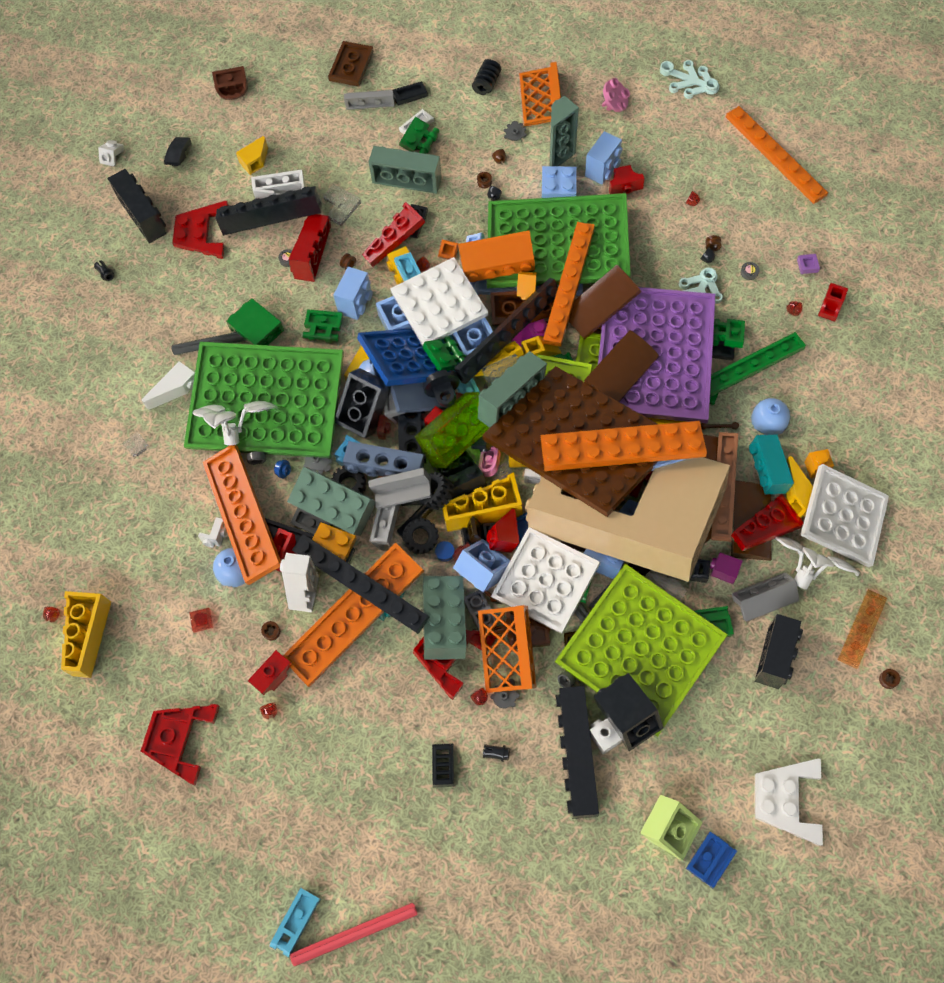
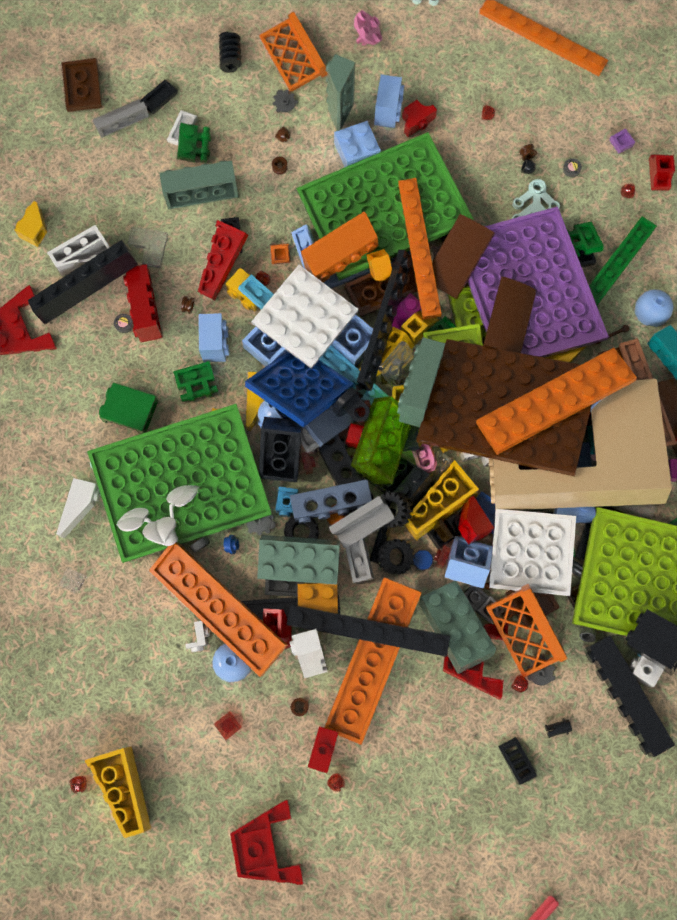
camera: 30 degrees left, 10 degrees up
(194, 345) = (87, 445): dark grey axle -> none
(440, 353) = (334, 372): green plate -> none
(494, 193) = (296, 177): black hinge -> none

